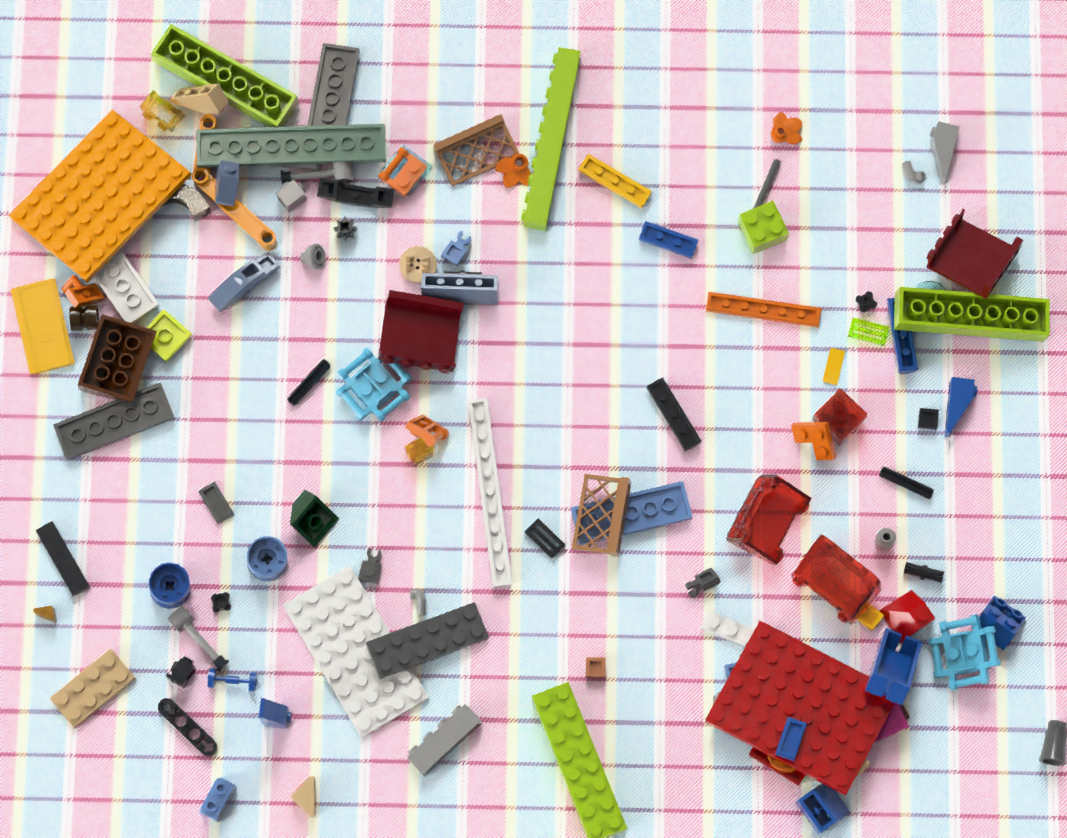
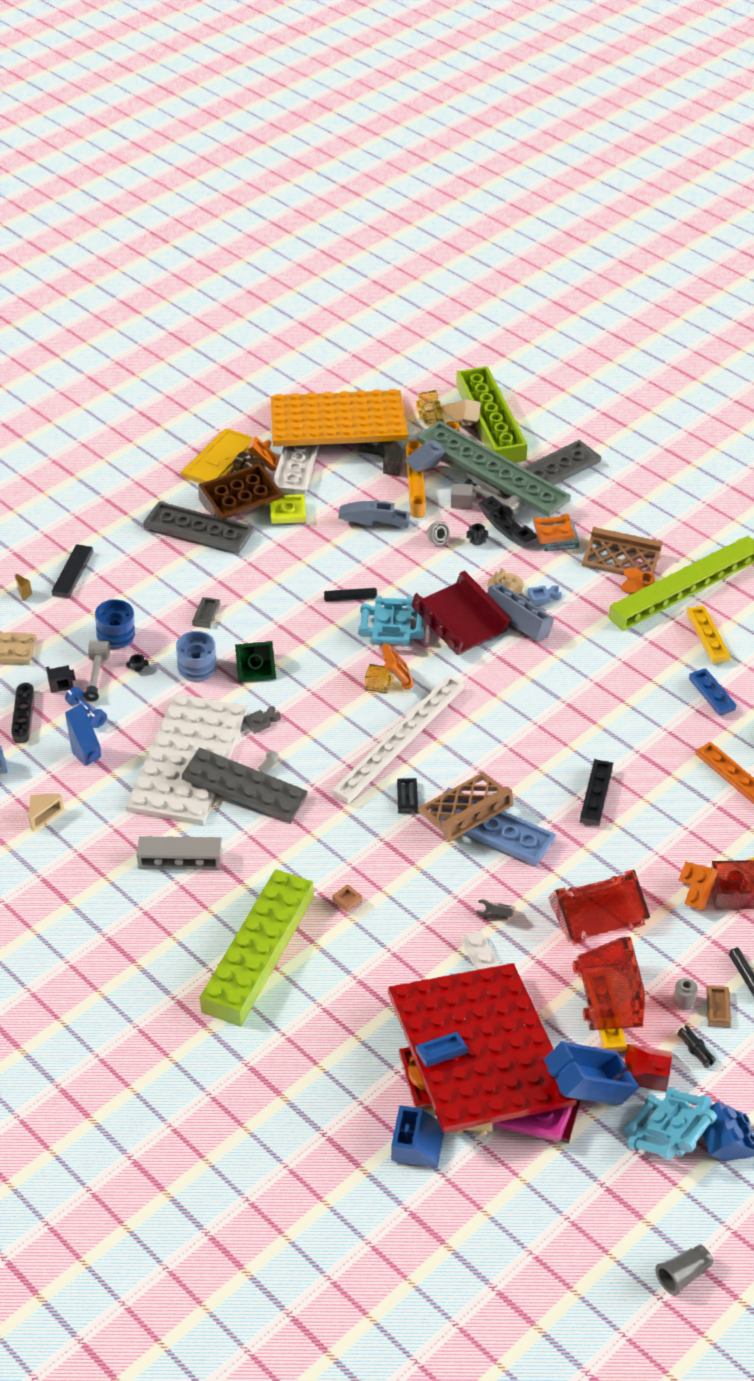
camera: 45 degrees right, 30 degrees down
(908, 526) = (718, 1006): none -> medium nougat tile

